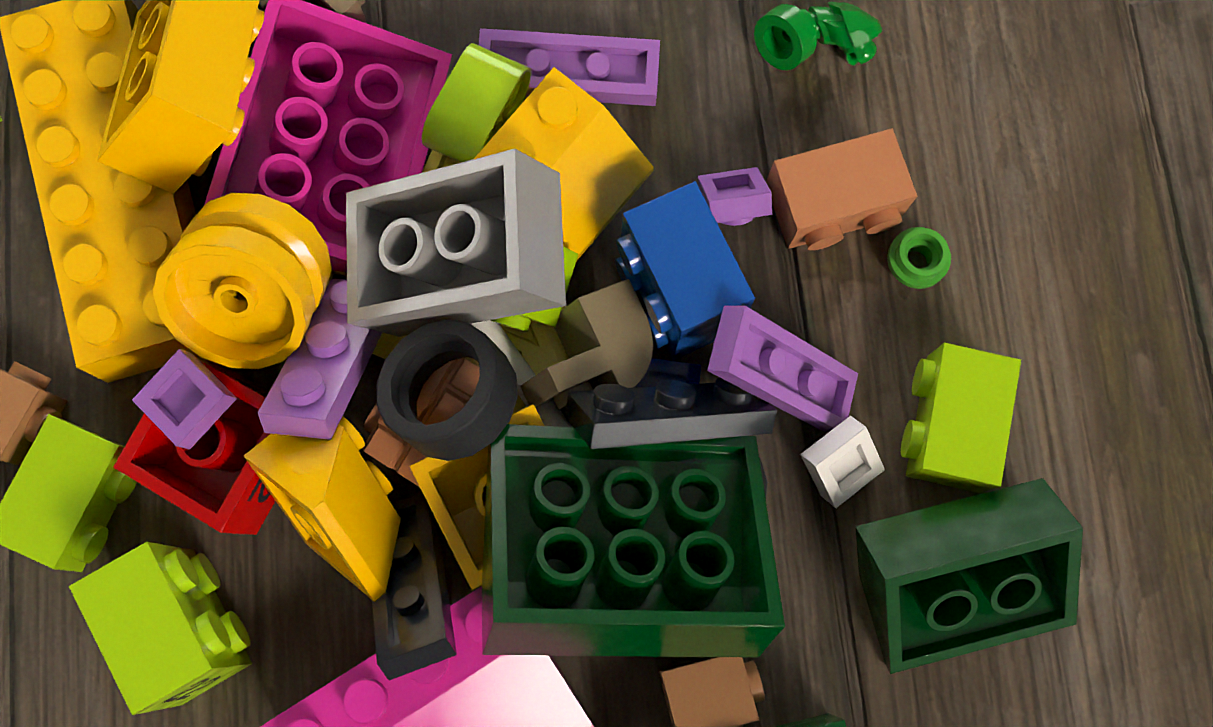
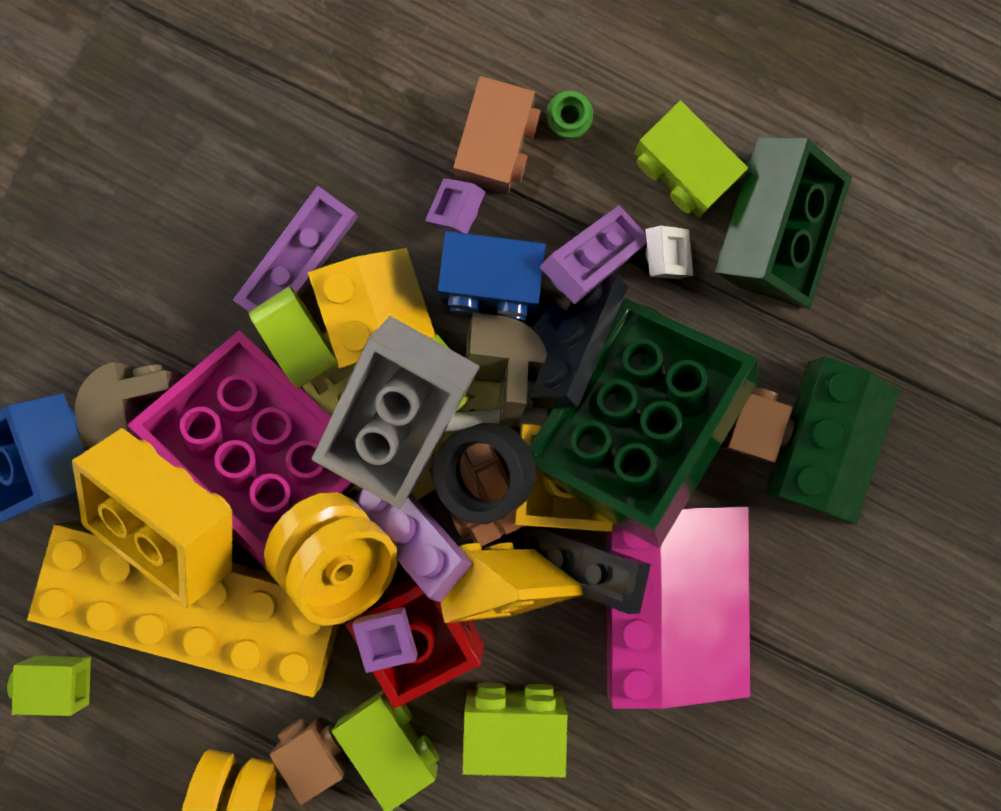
camera: 55 degrees left, 10 degrees up
(791, 34) = (367, 96): green arm -> none

